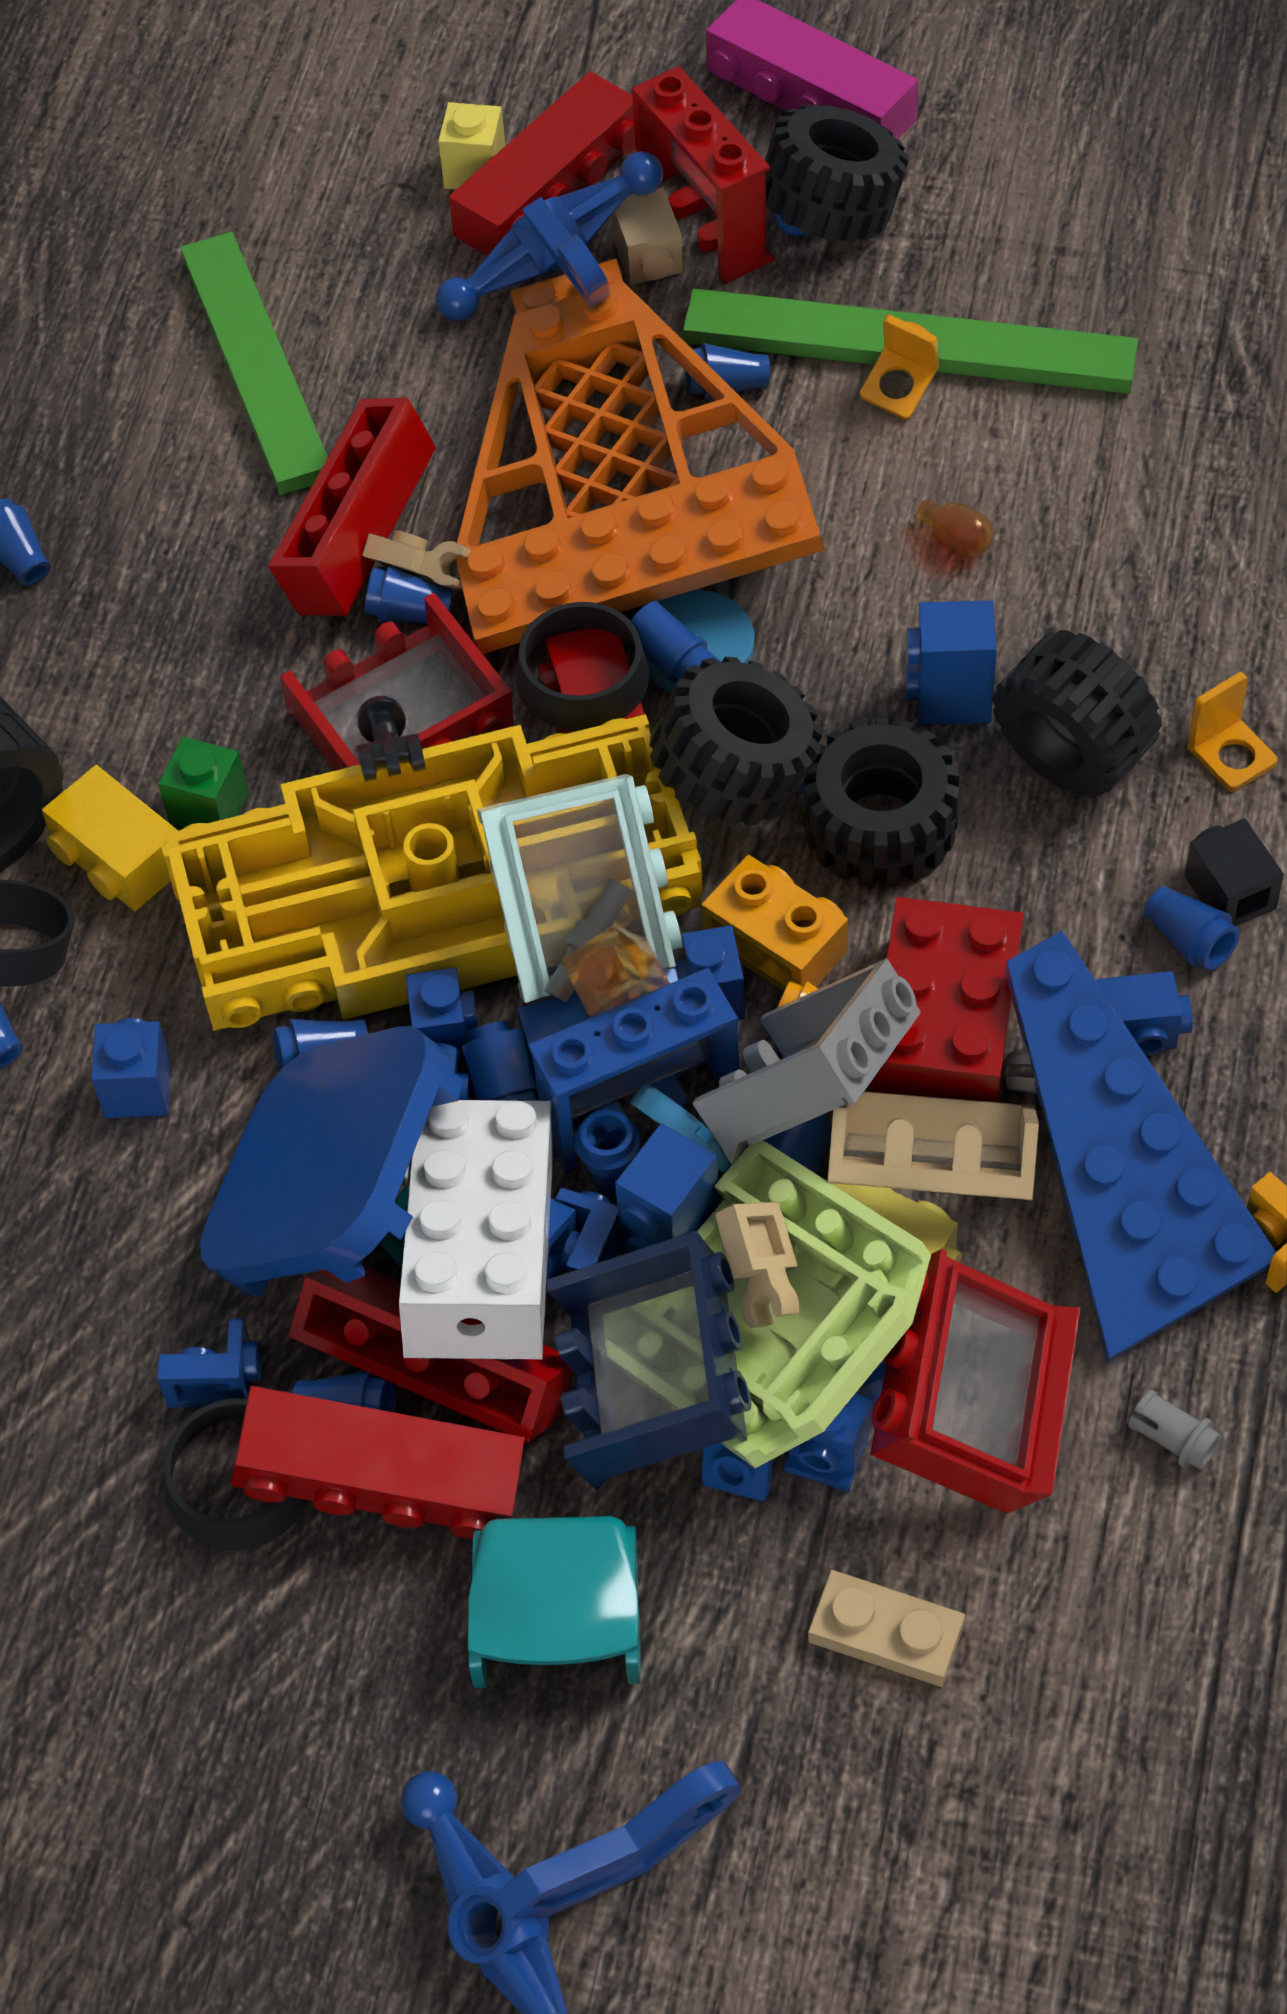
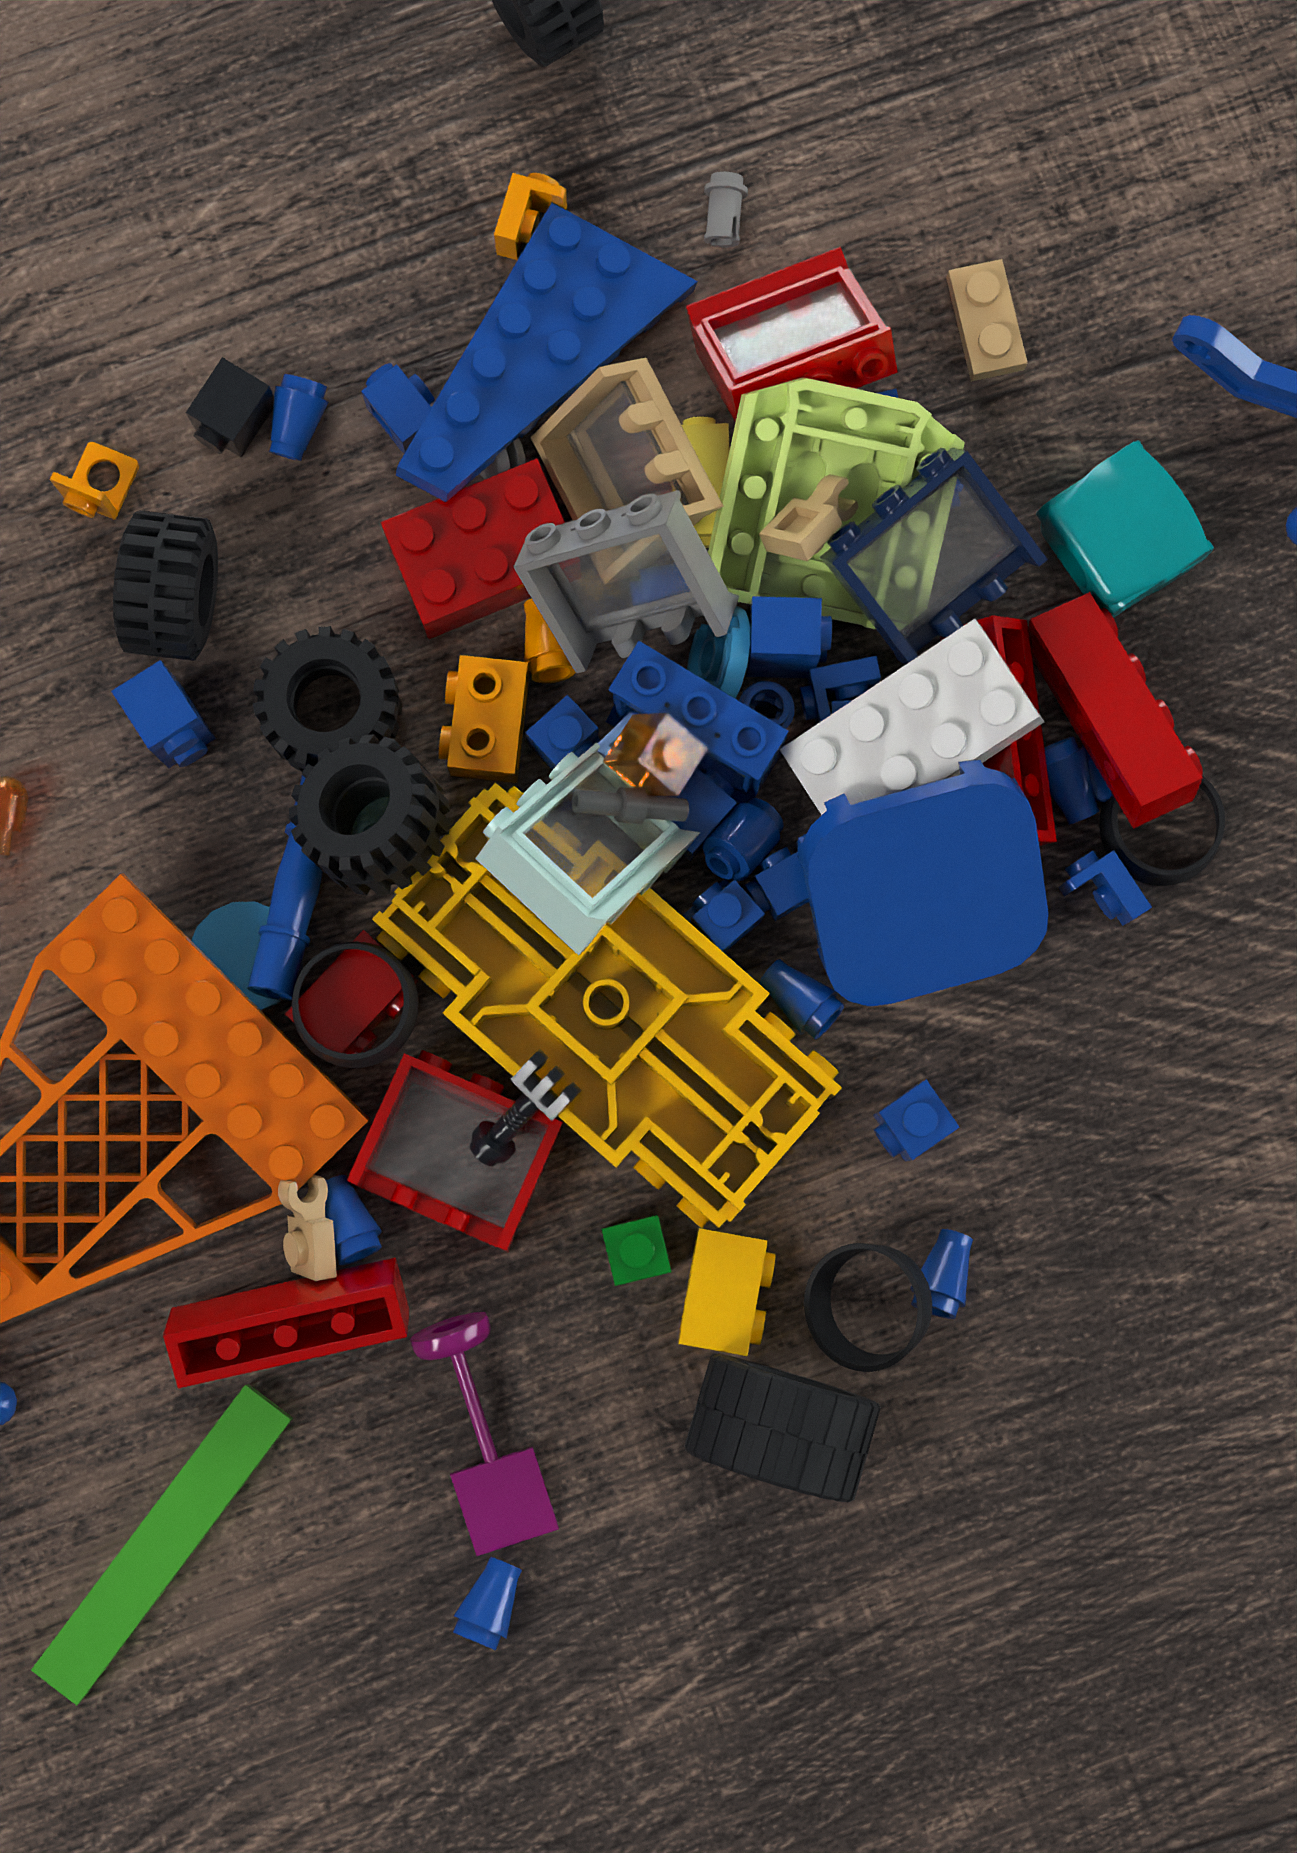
camera: 130 degrees left, 25 degrees up
(92, 598) = (505, 1495): none -> magenta piece

